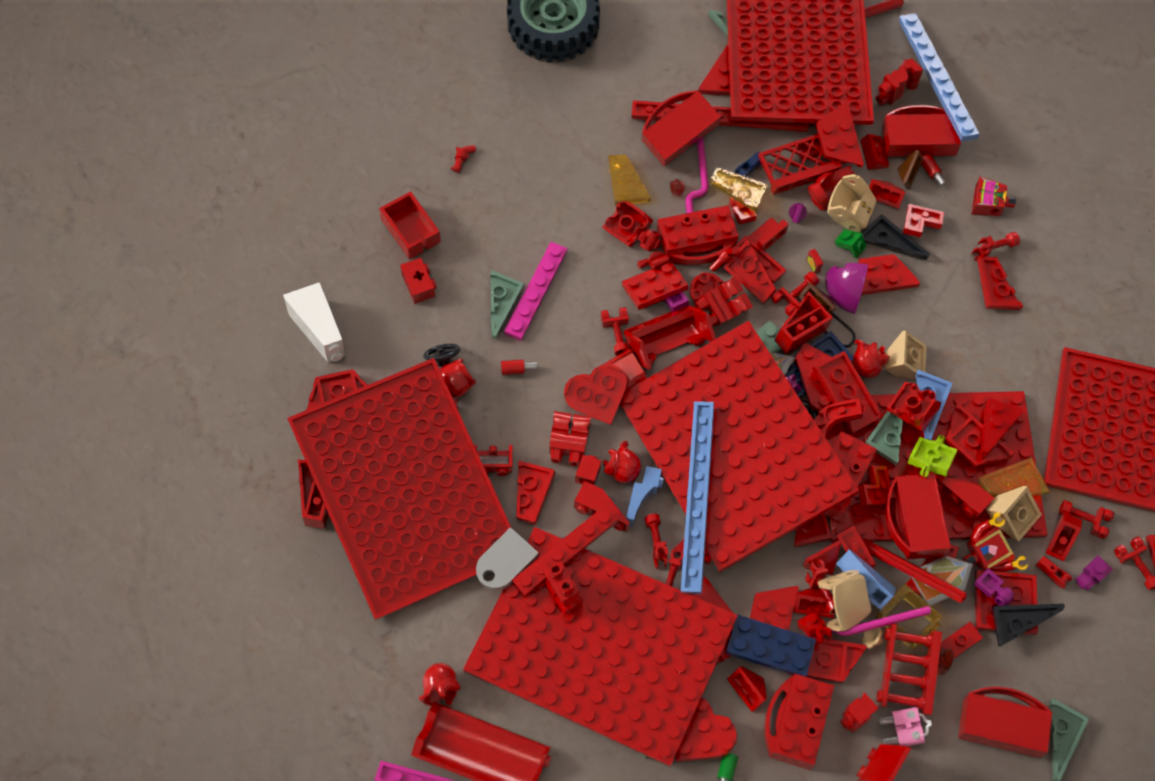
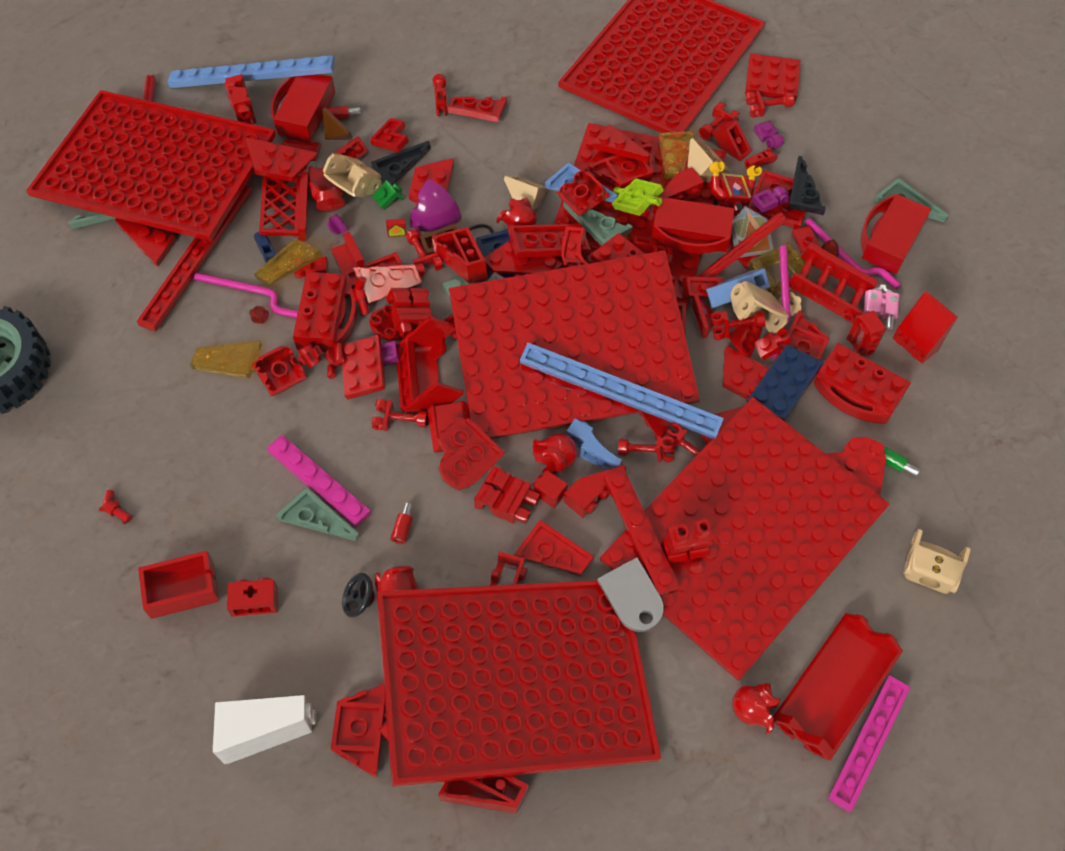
camera: 70 degrees left, 5 degrees down
(679, 126) = (194, 285): red piece -> none
(749, 687) = (817, 417): red slope -> none
(957, 685) = (845, 257): none -> dark pink piece
(990, 198) = (390, 82): torso -> none

